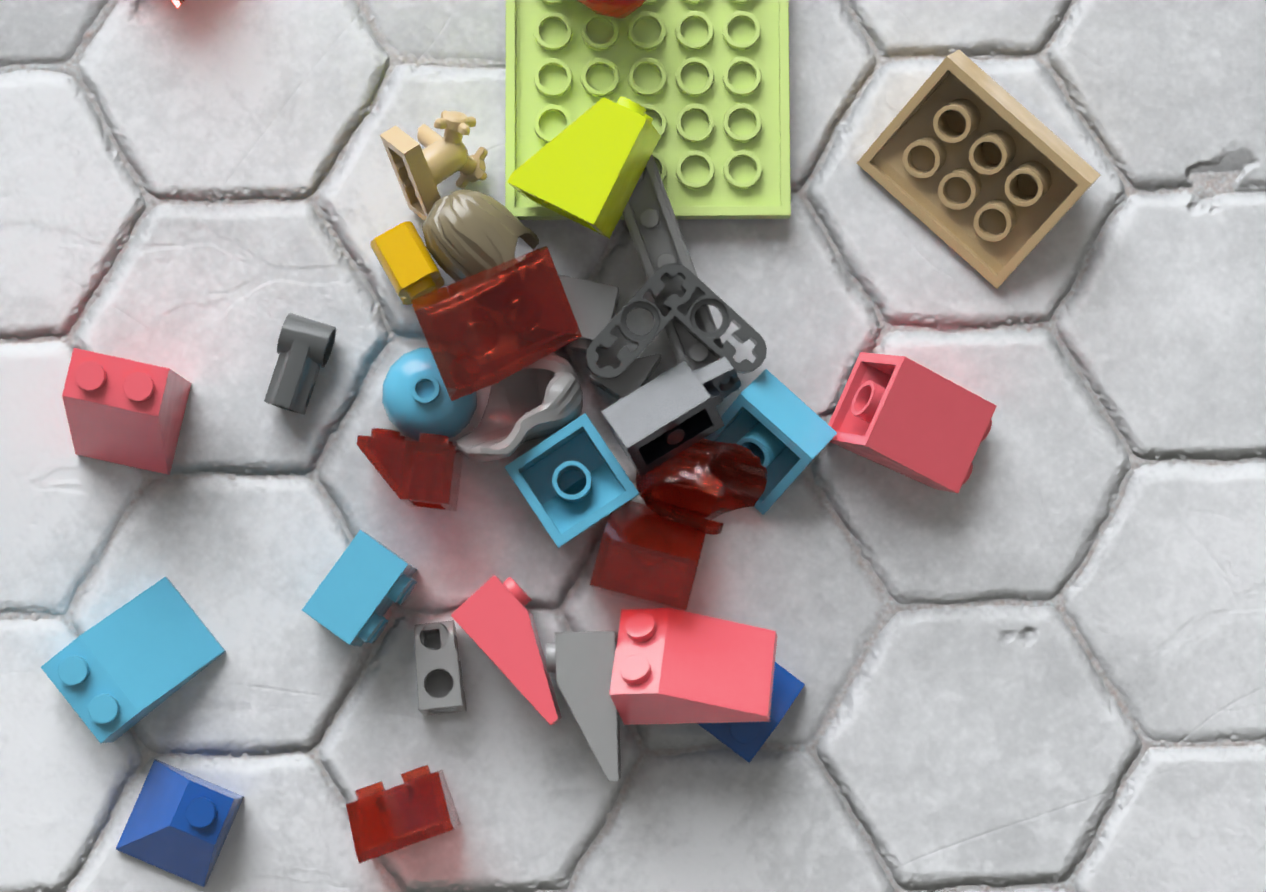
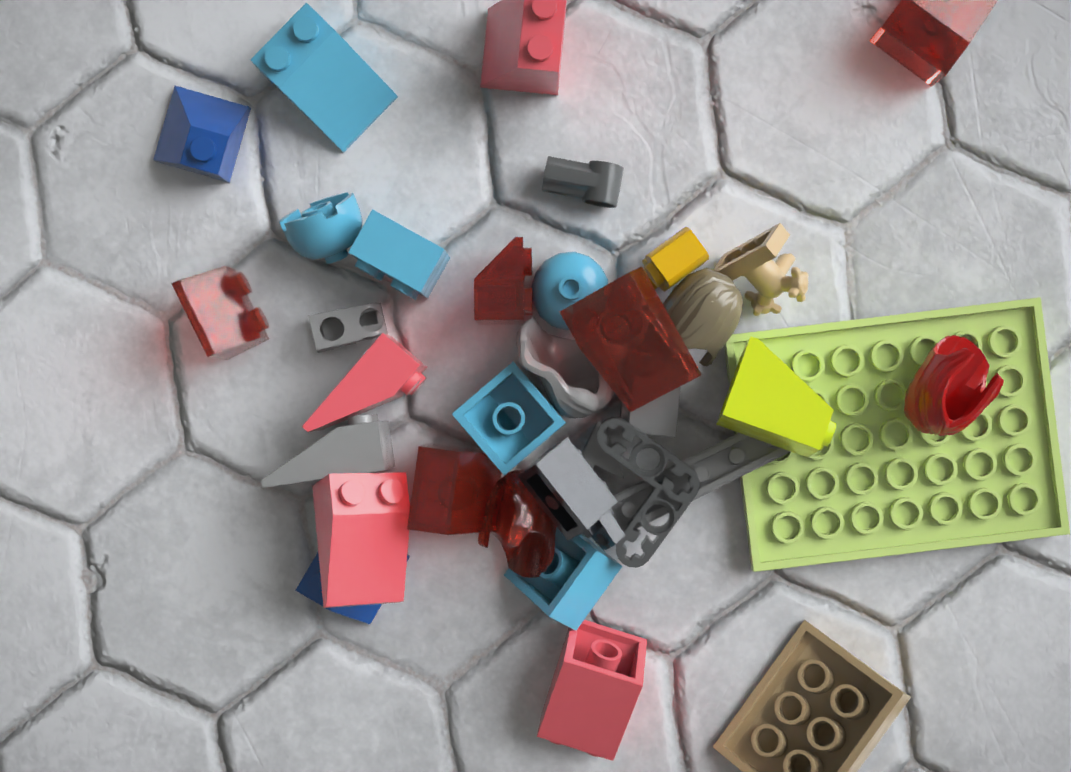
camera: 80 degrees right, 5 degrees up
(315, 679) = (324, 228): none -> medium azure cylinder

